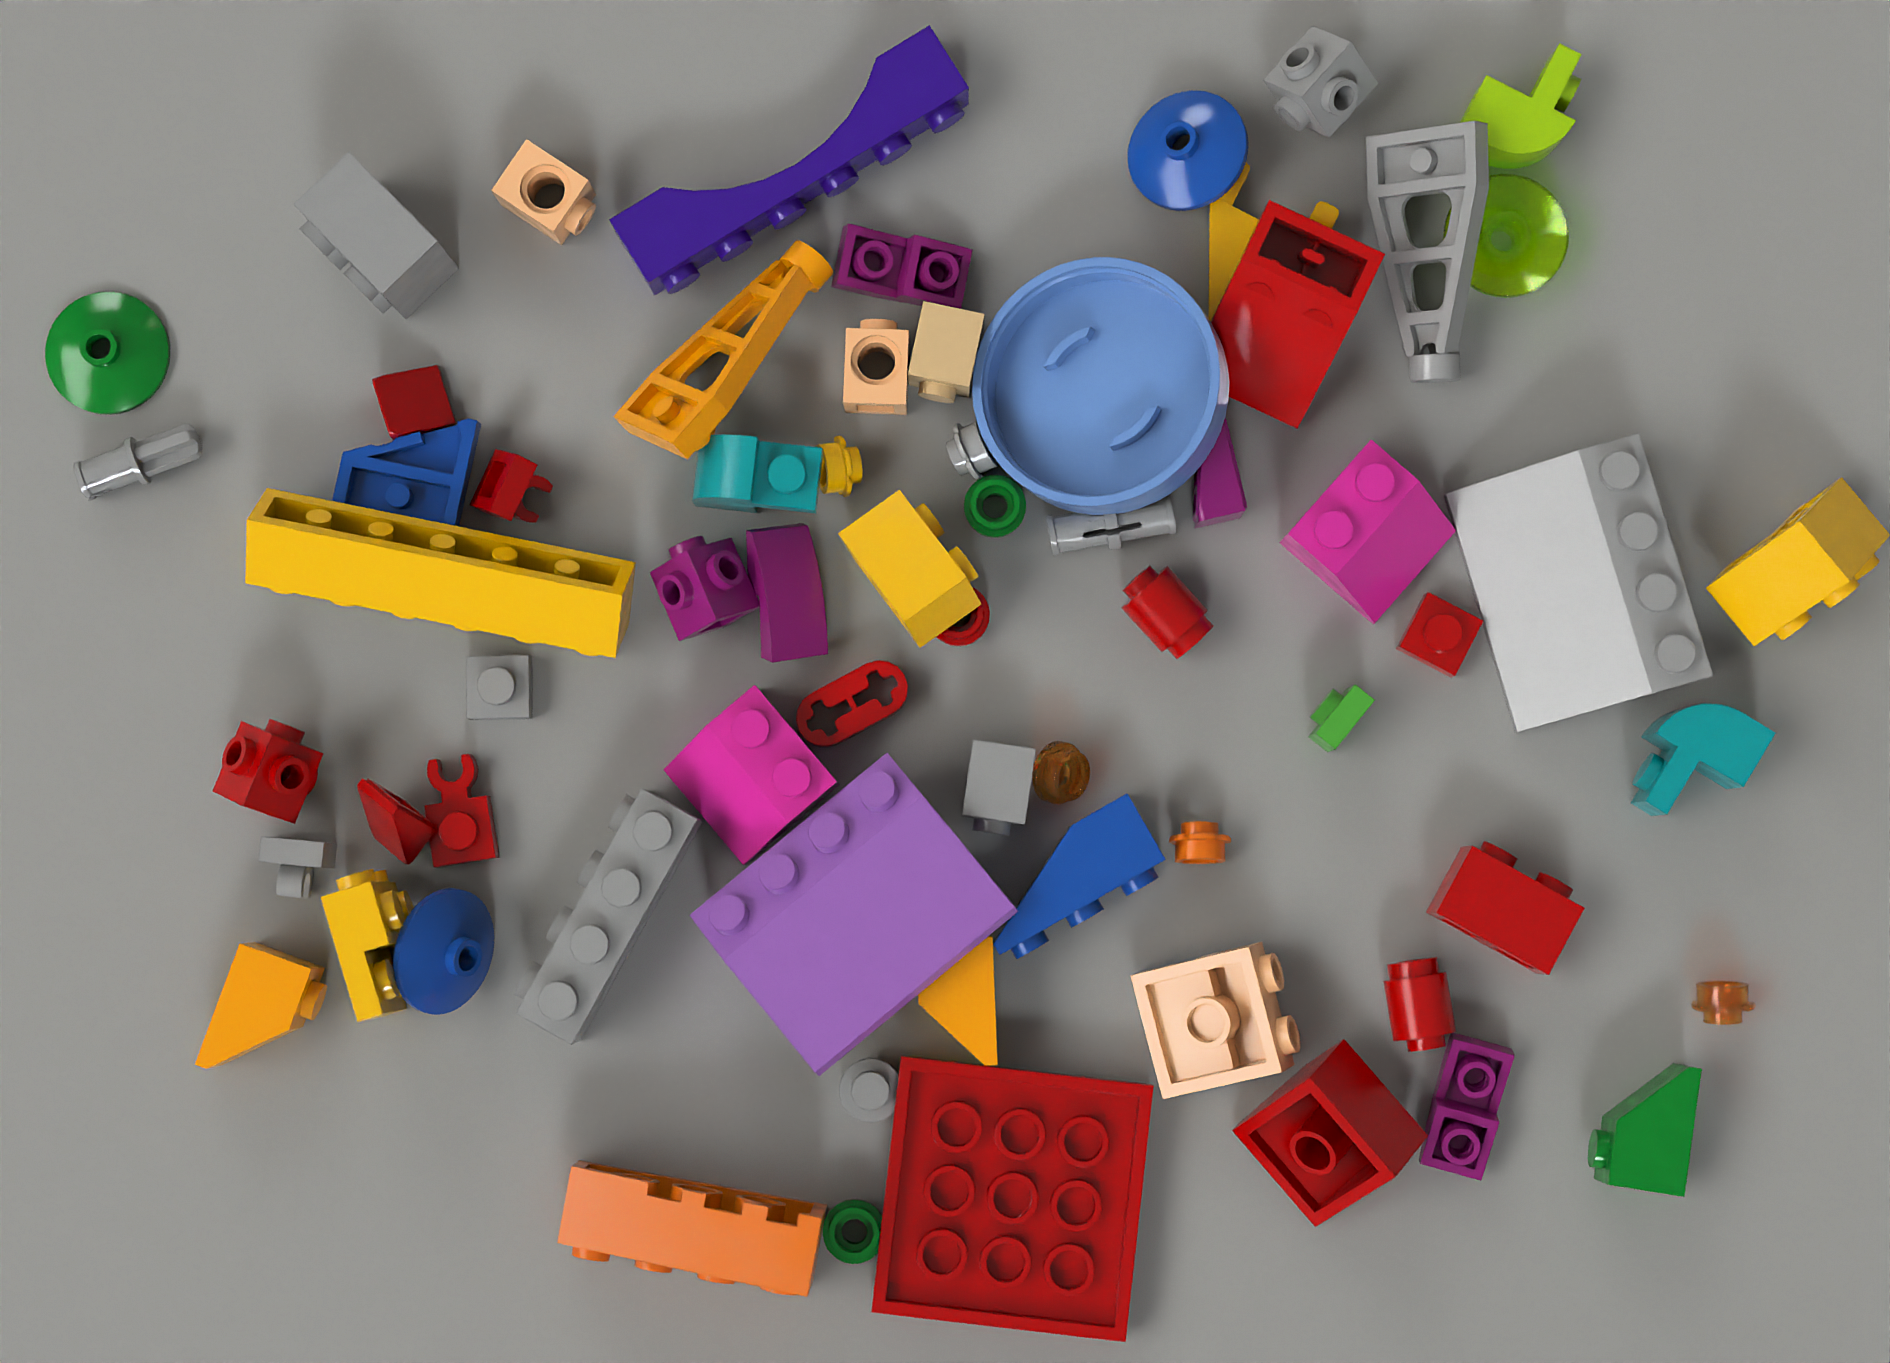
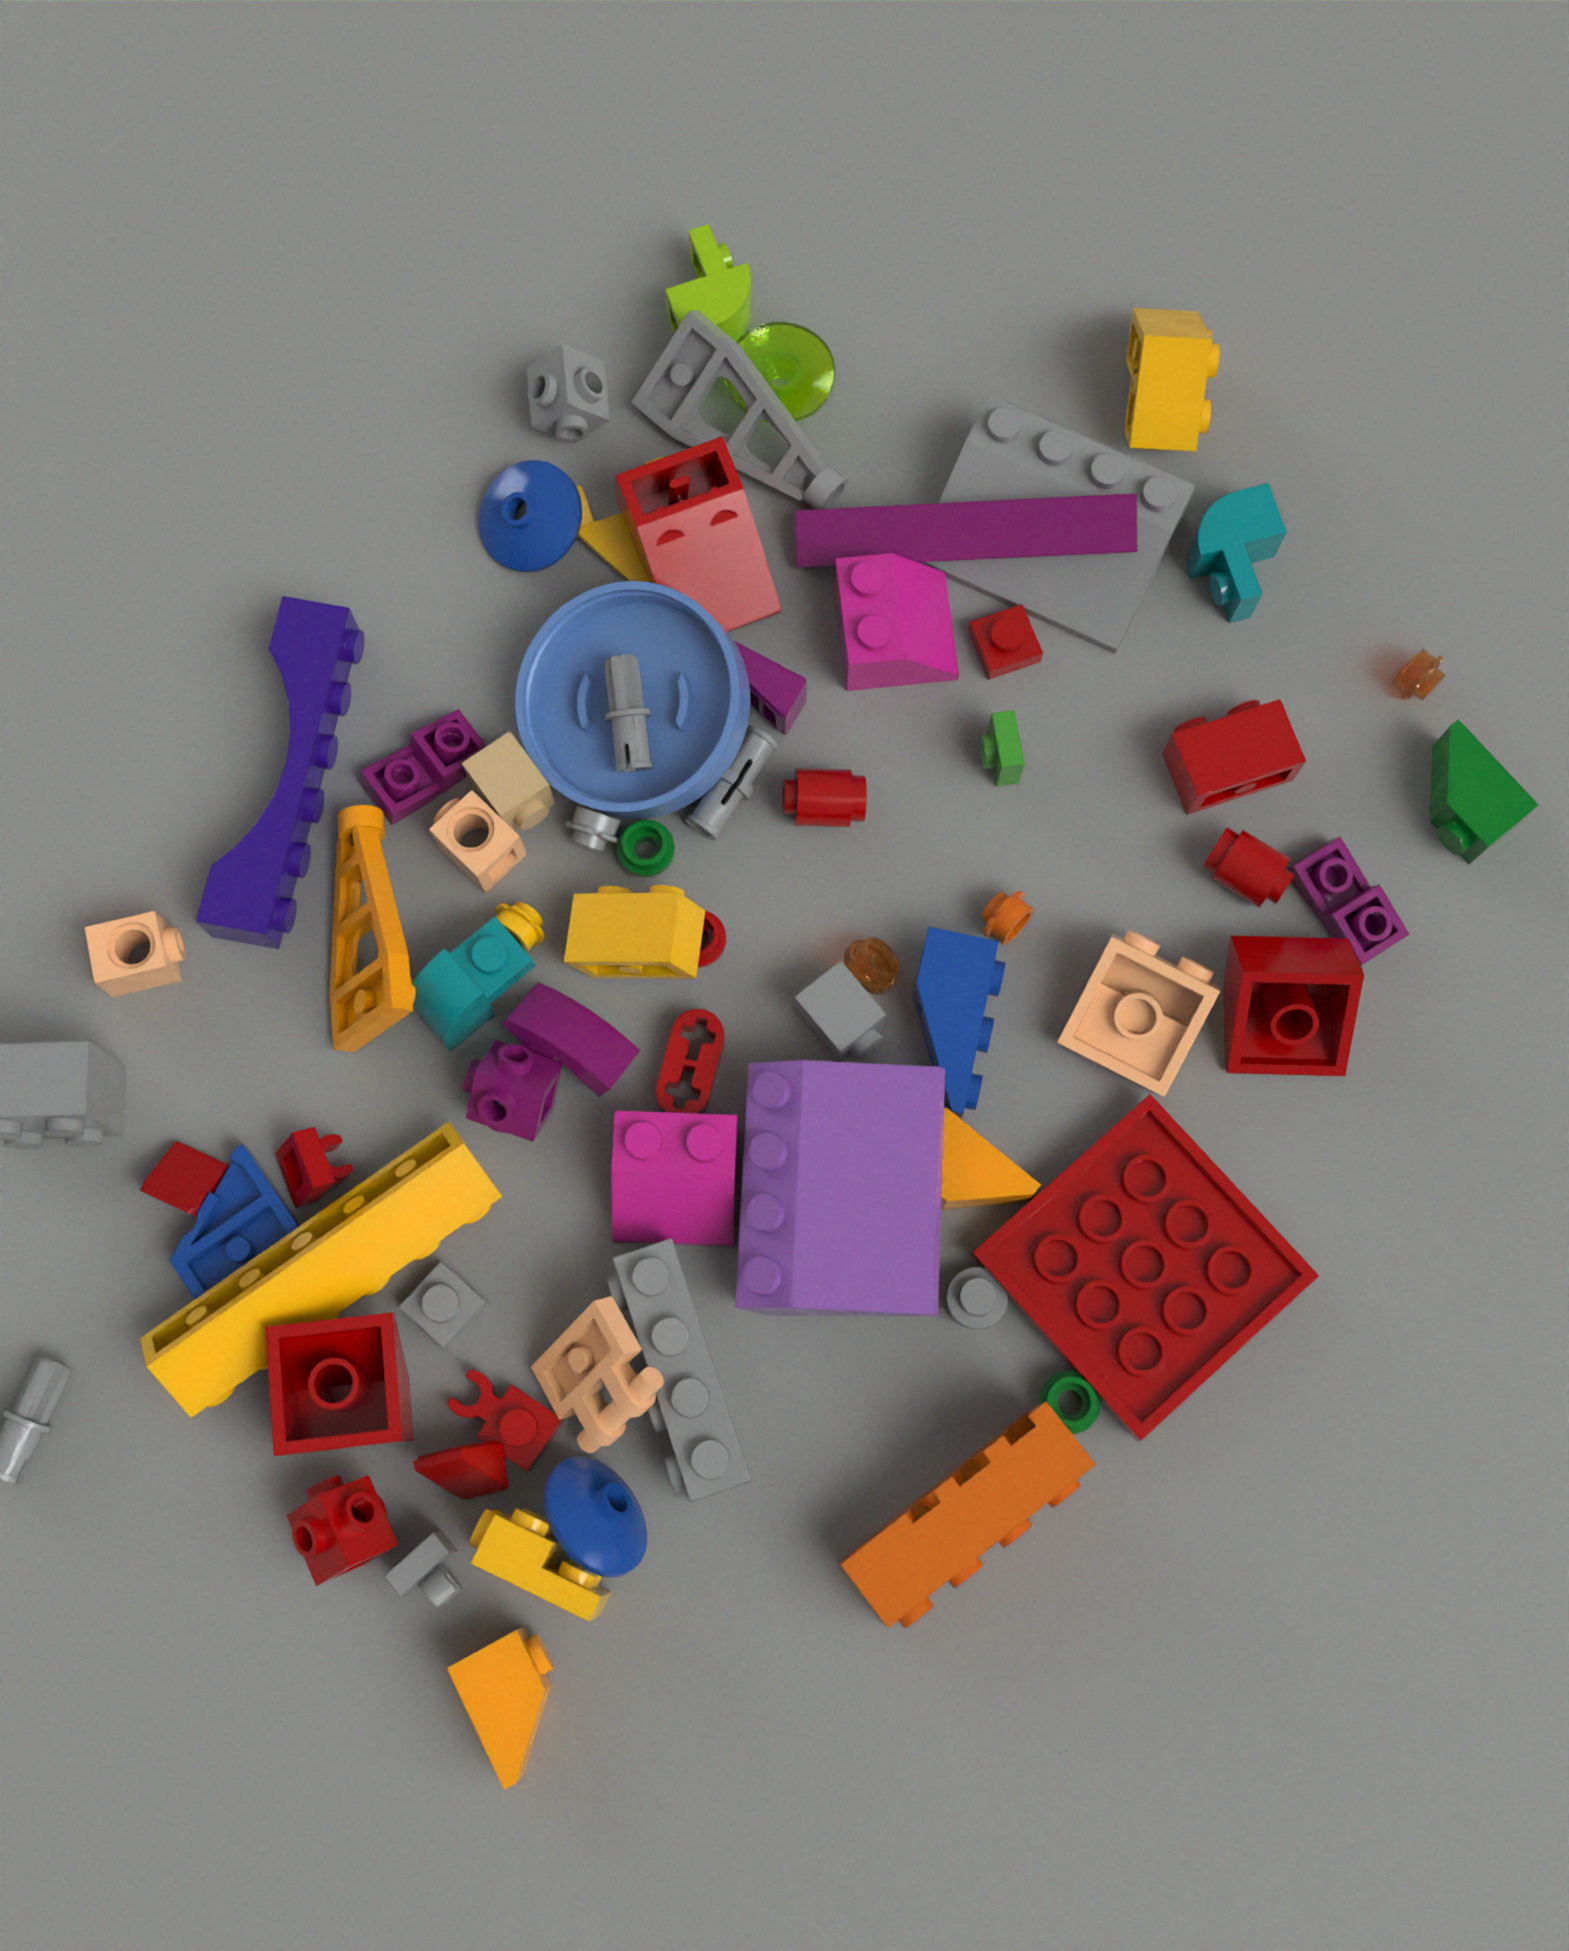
camera: 50 degrees left, 10 degrees down
(363, 672) = (338, 1385): none -> red slope
(551, 838) = (584, 1361): none -> light nougat plate
(1084, 394) = (627, 714): none -> light grey axle
(1500, 522) = (970, 529): none -> magenta tile

